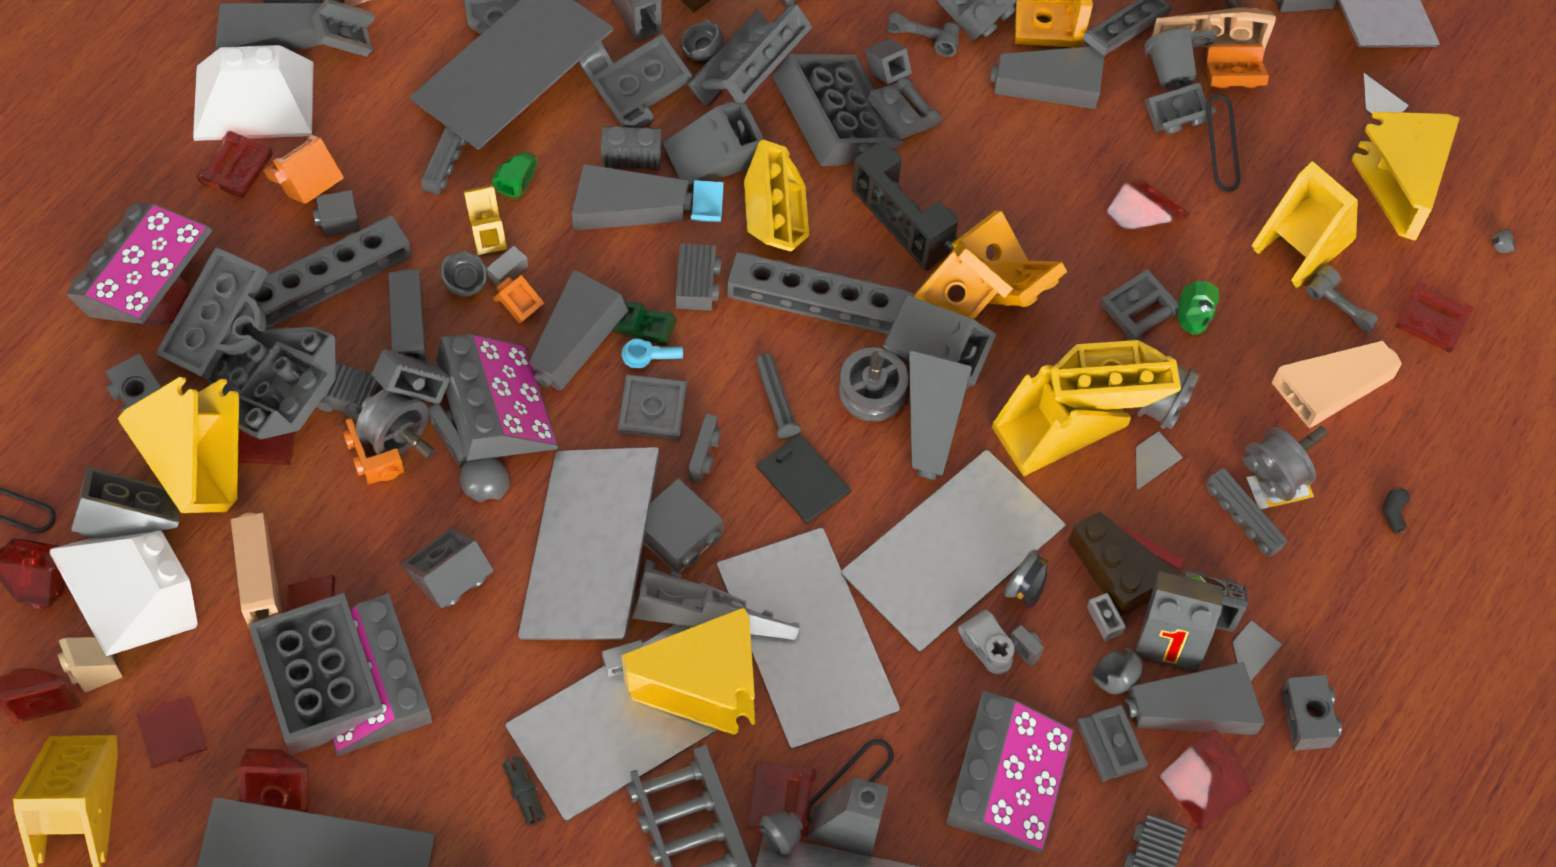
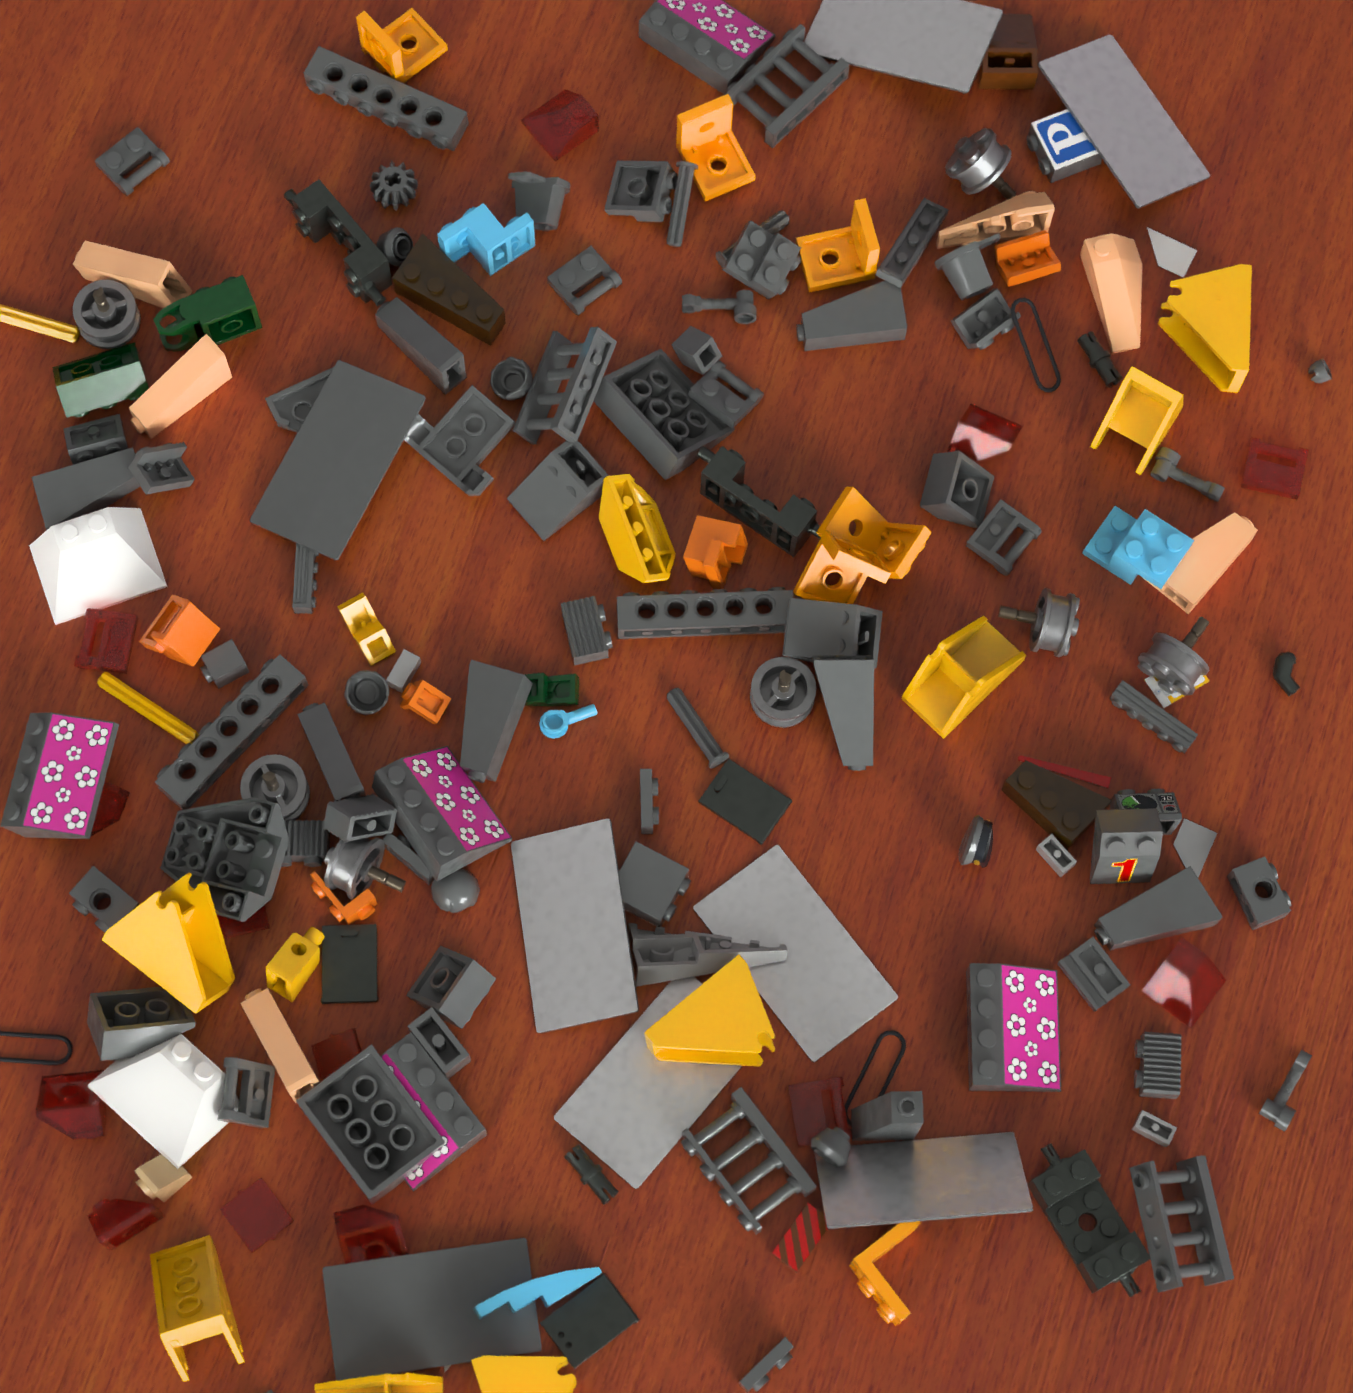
camera: 15 degrees left, 10 degrees up
(213, 611) = (254, 1093): none -> dark grey plate
(215, 315) = (152, 807): dark grey plate -> none
(248, 231) = (147, 708): none -> yellow axle
(298, 499) = (294, 963): none -> yellow torso
(352, 329) = (277, 781): none -> flat silver wheel
(355, 519) = (349, 964): none -> pearl dark grey container
(414, 615) = (439, 1043): none -> dark grey brick
(515, 174) = (378, 573): green rock -> none
(613, 660) = (637, 1025): light grey piece -> none
(627, 199) = (494, 567): dark grey slope -> none
(631, 147) = (480, 513): dark grey brick -> none
(652, 407) = (585, 772): flat silver tile -> none
(707, 201) = (570, 550): medium azure bracket -> none
(847, 235) = (713, 548): none -> orange plate
(952, 550) = (901, 830): flat silver piece -> none
(986, 637) = (955, 908): light grey piece -> none
(1027, 645) = (994, 904): flat silver plate -> none
(1106, 249) = (957, 489): none -> dark grey slope
(1114, 376) = (1004, 628): yellow wedge -> none
(1118, 671) = (1081, 905): dark grey hair -> none
(1153, 458) = (1056, 685): light grey sticker -> none
(1197, 306) = (1056, 524): green rock -> none
(1274, 347) = (1138, 547): none -> medium azure bracket
(1282, 170) = (1100, 359): none -> pearl dark grey pin
(1319, 111) = (1116, 285): none -> light nougat wedge

